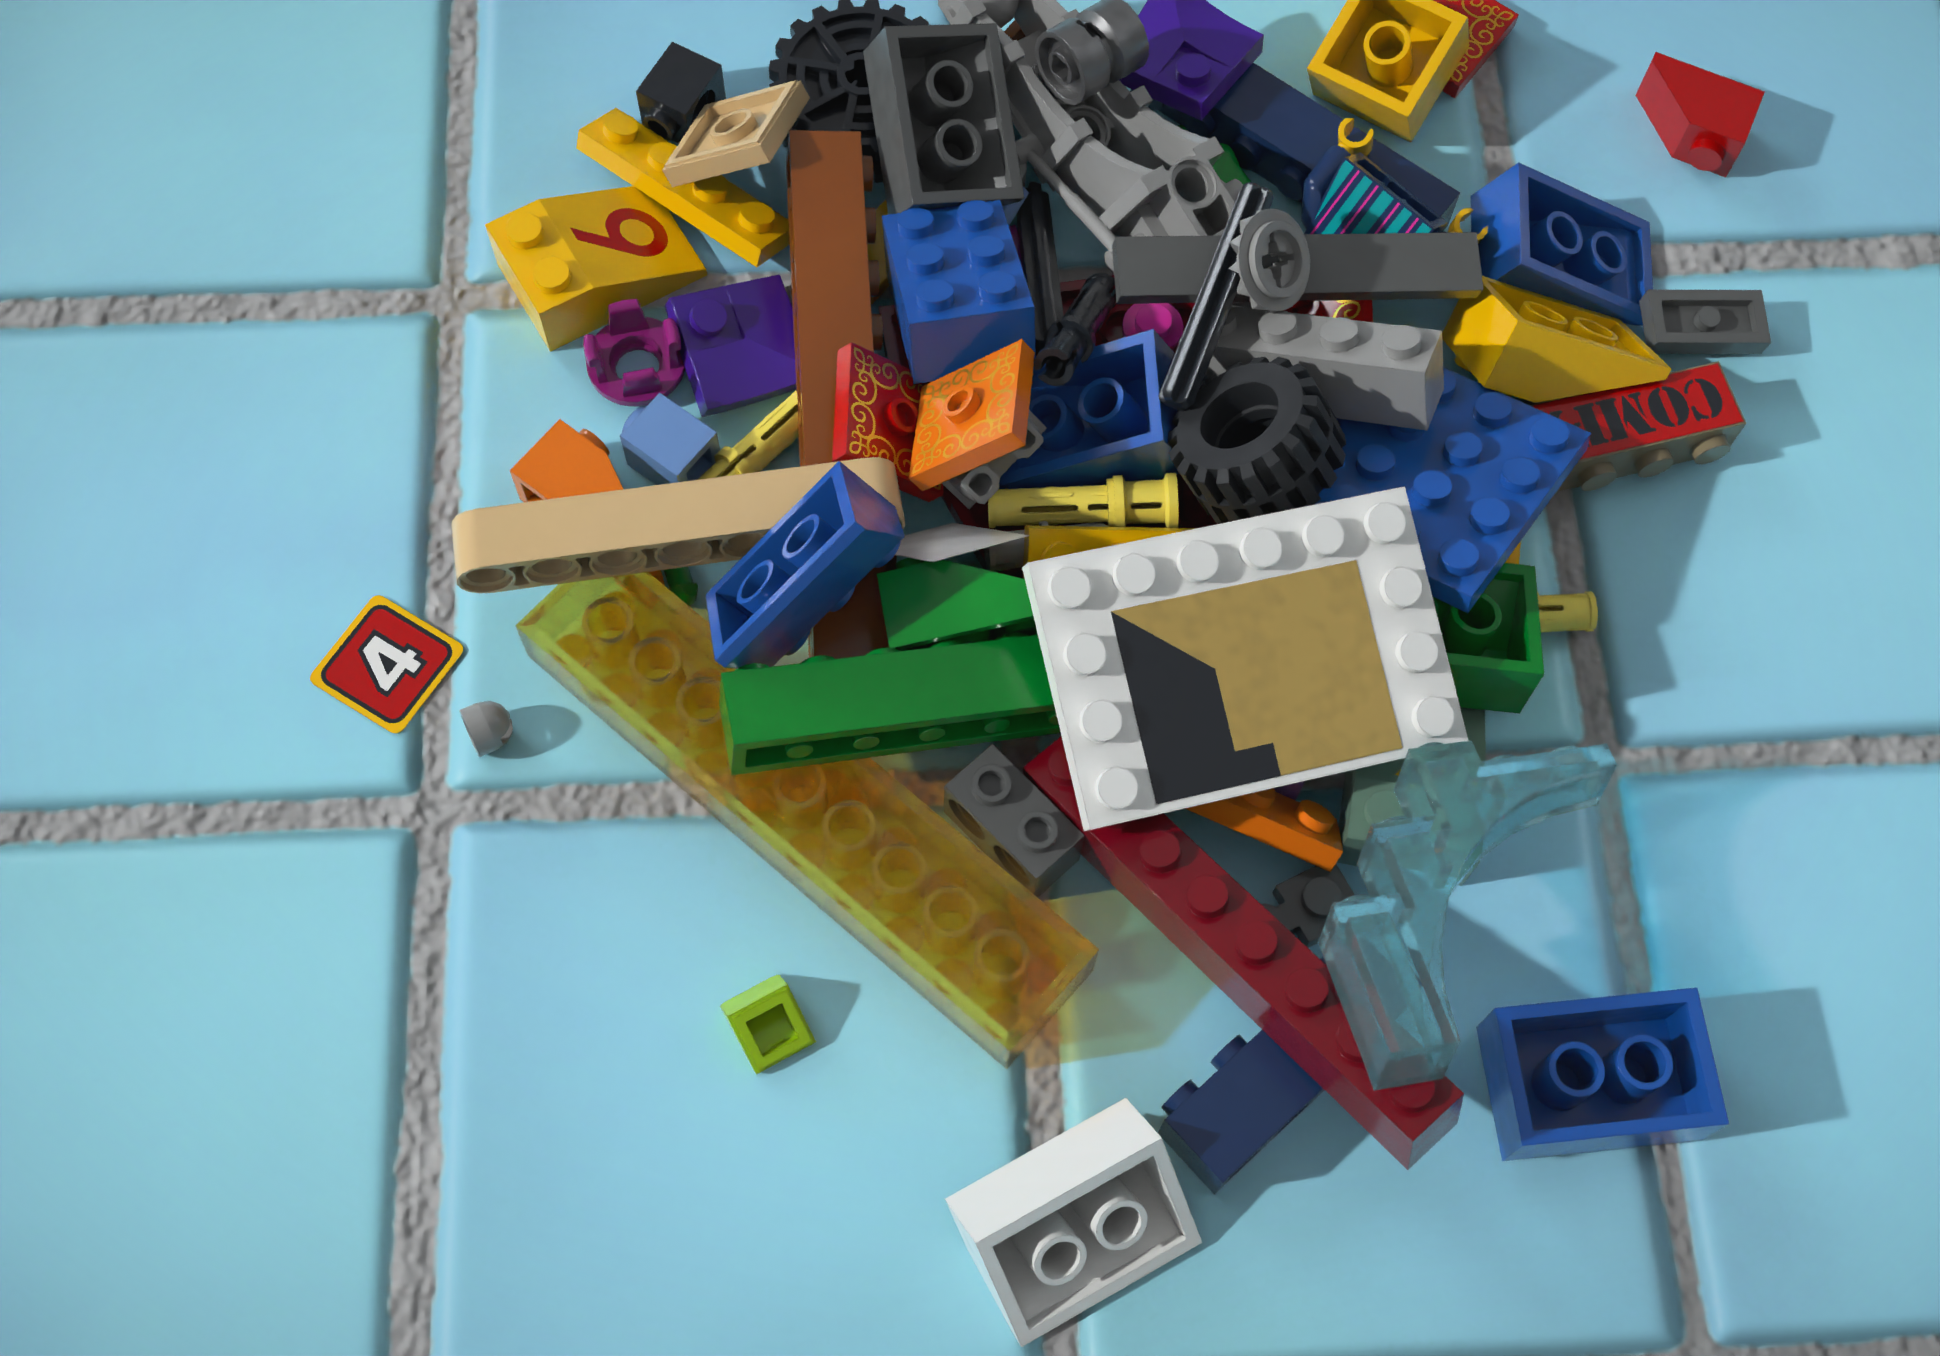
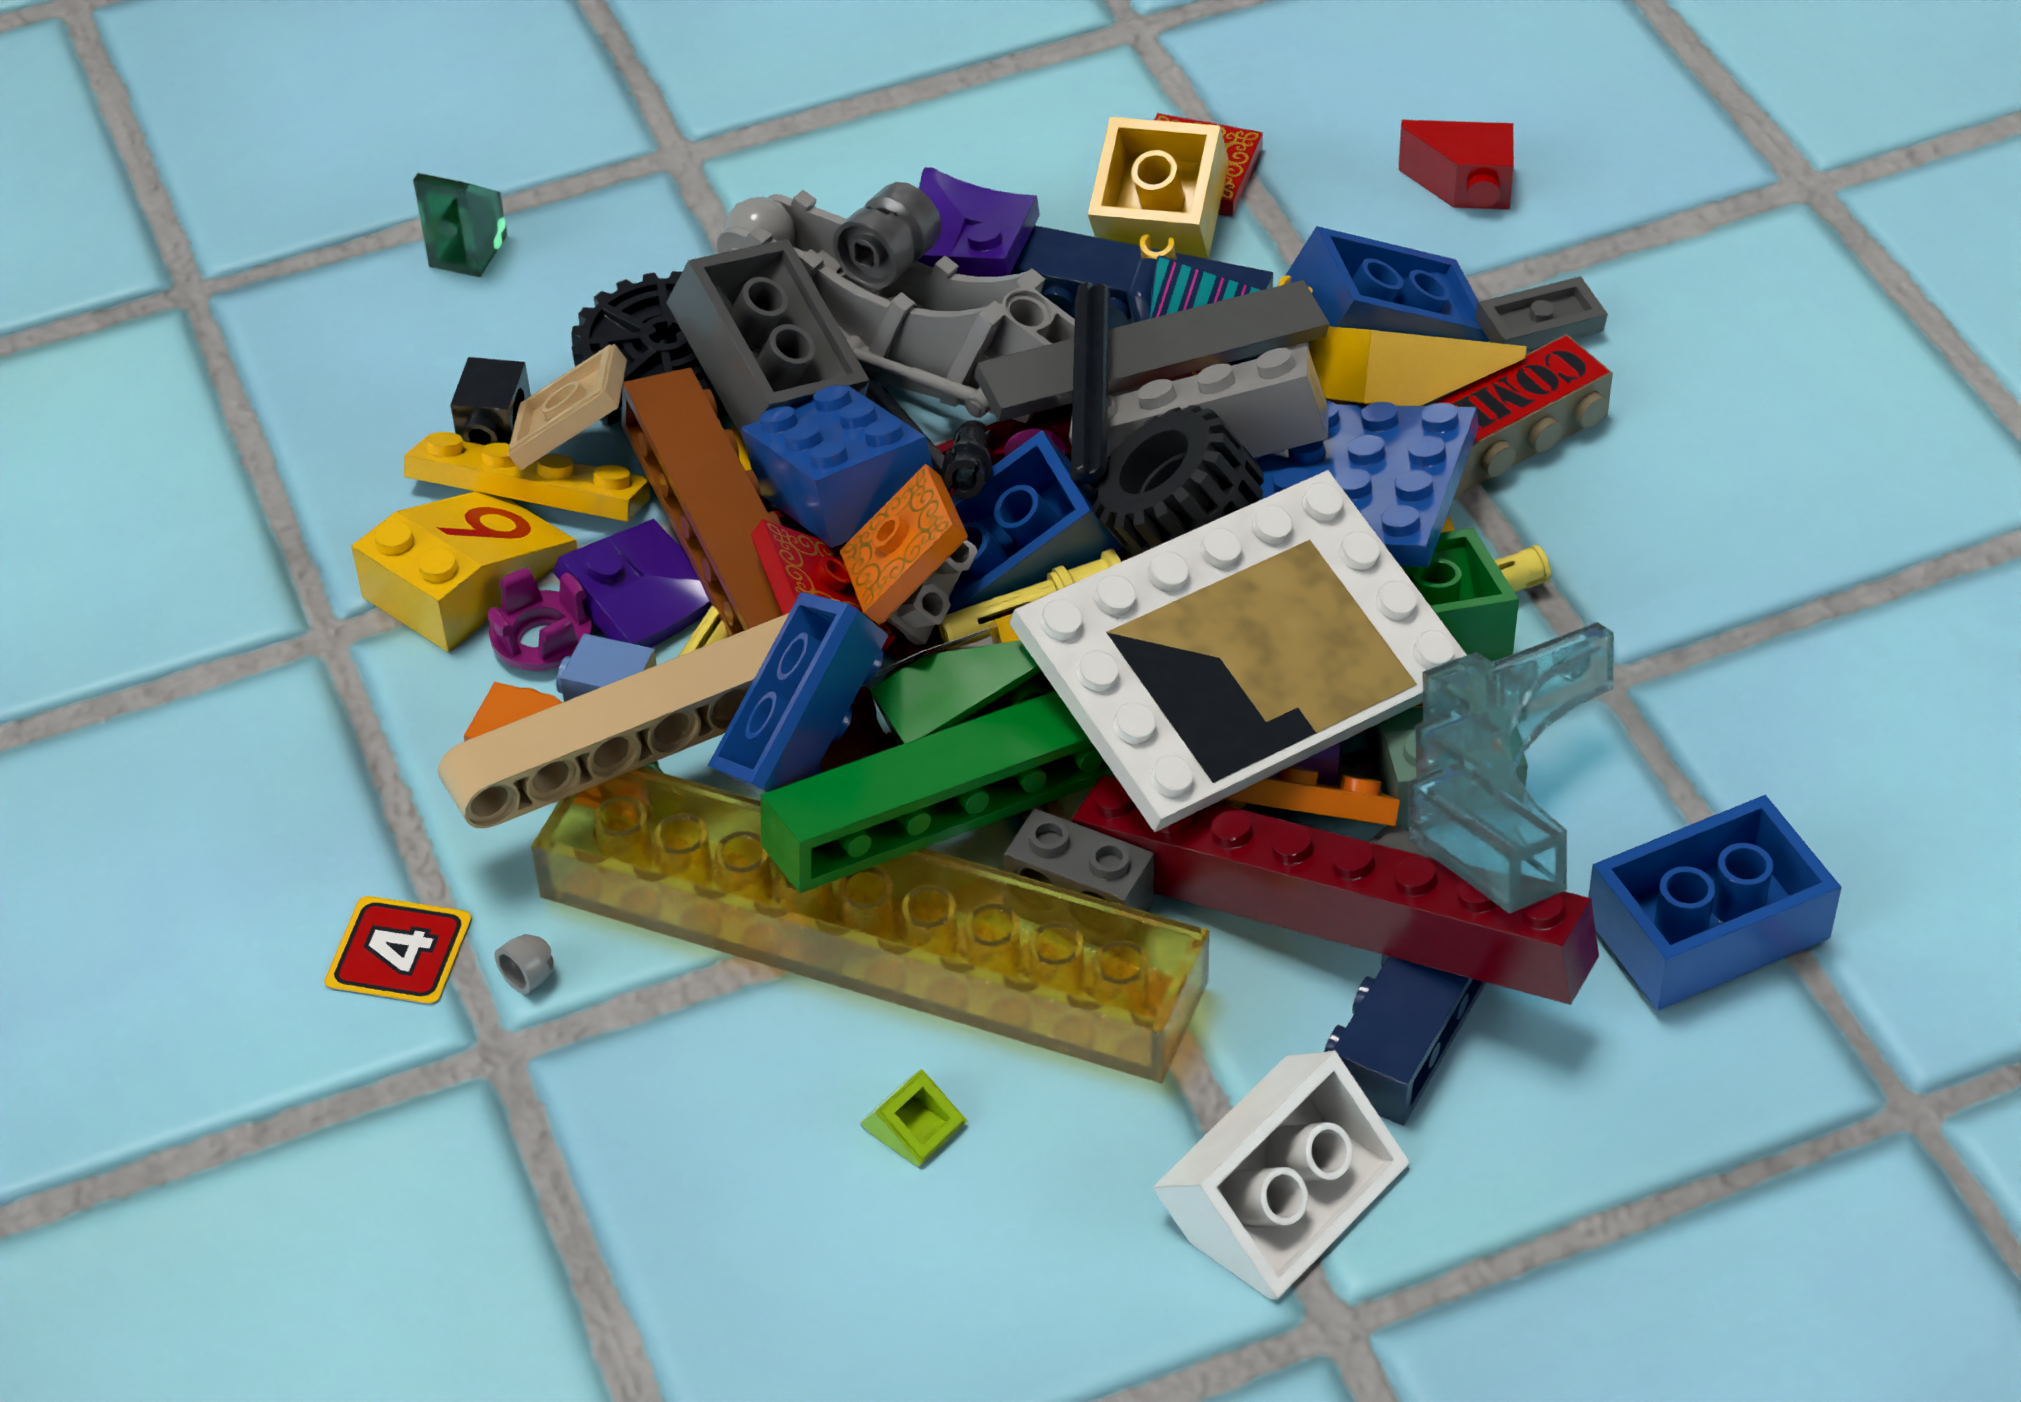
camera: 15 degrees left, 20 degrees down
(1285, 281) = (1122, 317): light grey gear -> none

